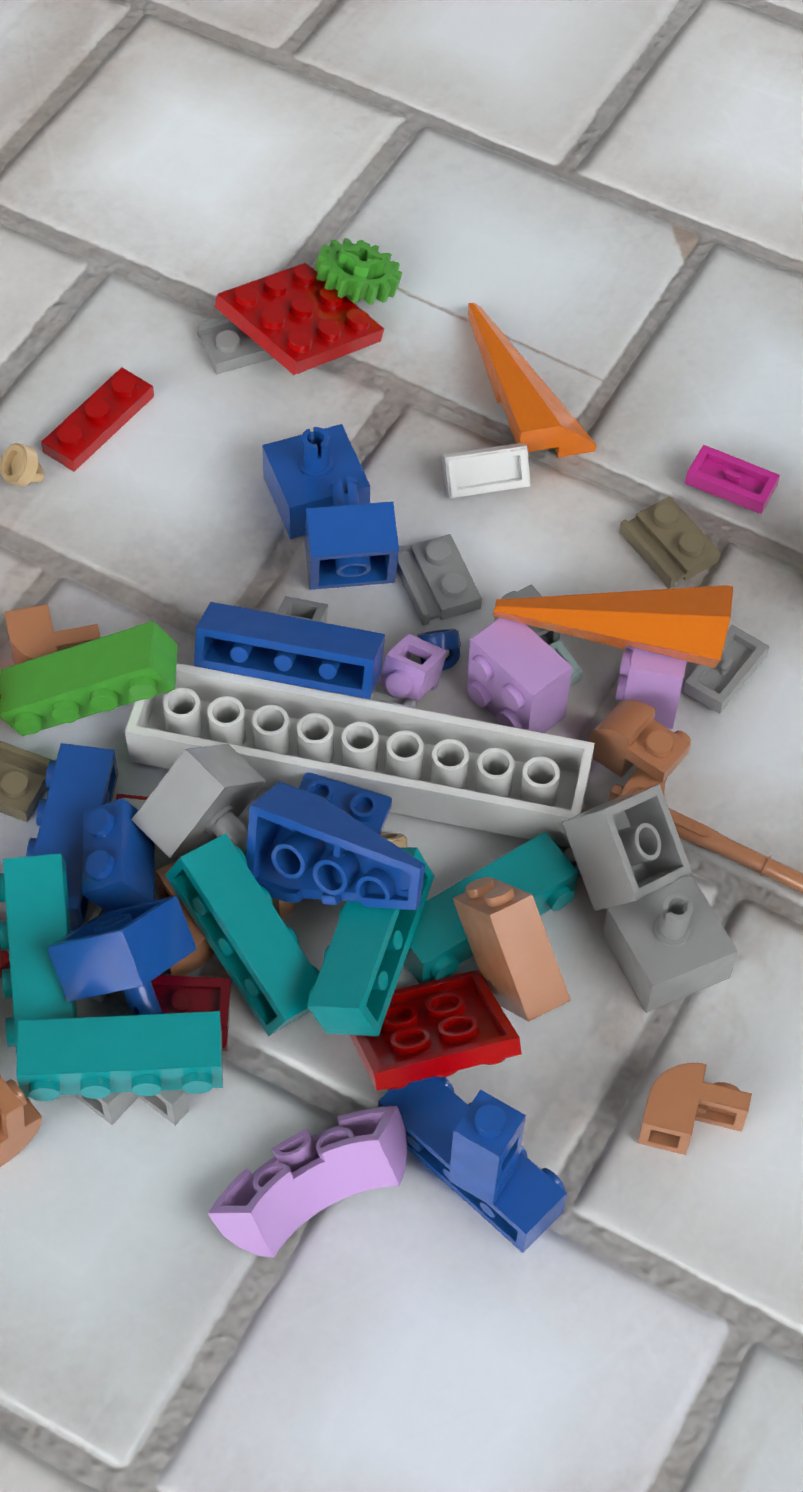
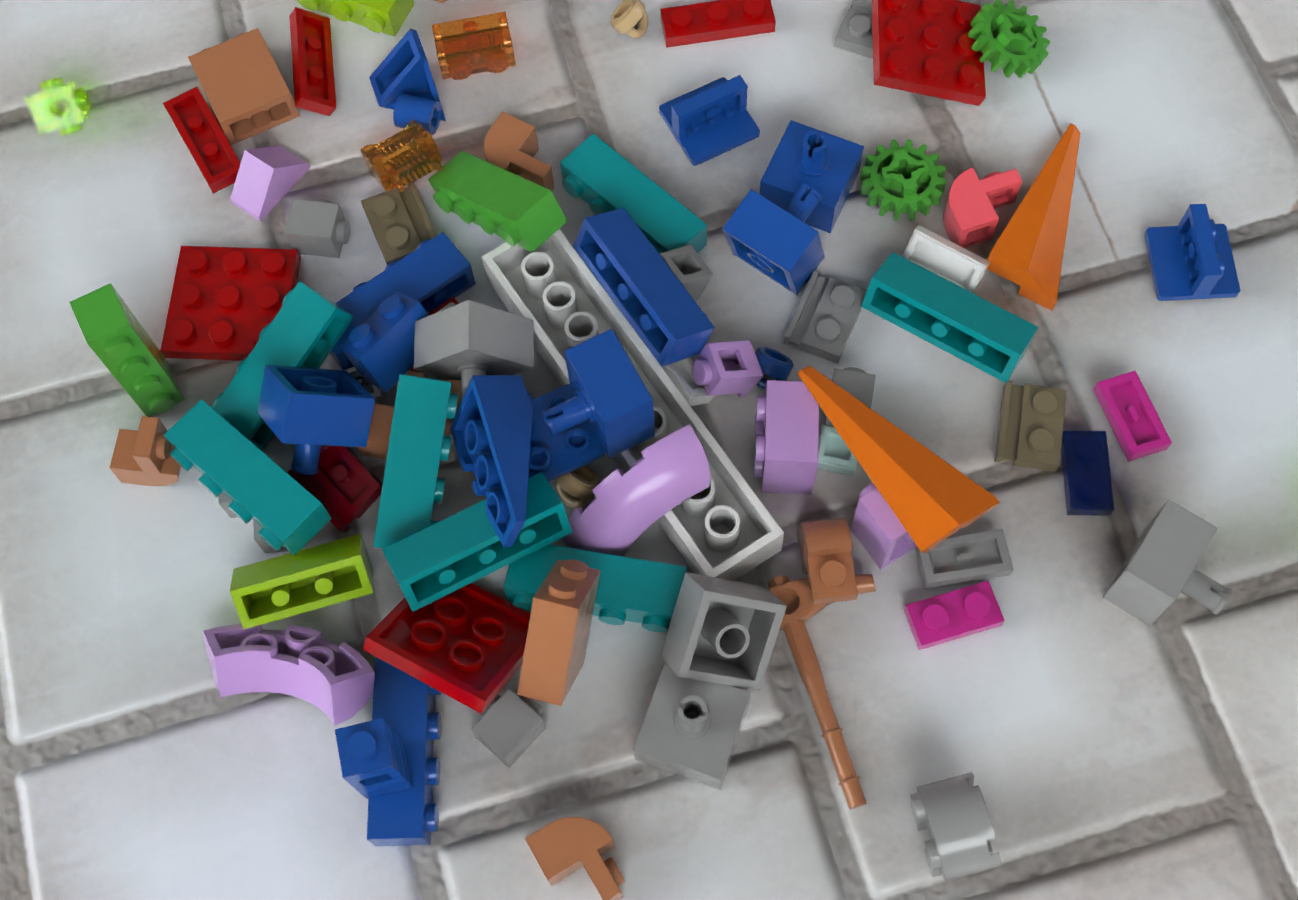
camera: 50 degrees right, 10 degrees up
(181, 496) = (711, 119): none -> blue bracket
(181, 599) = (613, 183): none -> teal brick
(250, 1105) = (301, 582): none -> lime brick
(367, 739) = (605, 394): none -> blue brick
(390, 433) = (902, 180): none -> bright green gear
(460, 414) = (972, 203): none -> coral brick
(462, 800) = (635, 500): none -> lavender brick
(534, 505) = (949, 316): none -> teal brick
(538, 1072) = (509, 726): none -> light grey brick
(656, 339) = (1192, 258): none -> blue bracket
(744, 544) = (1086, 473): none -> clear blue plate
(758, 715) = (953, 615): none -> dark pink plate

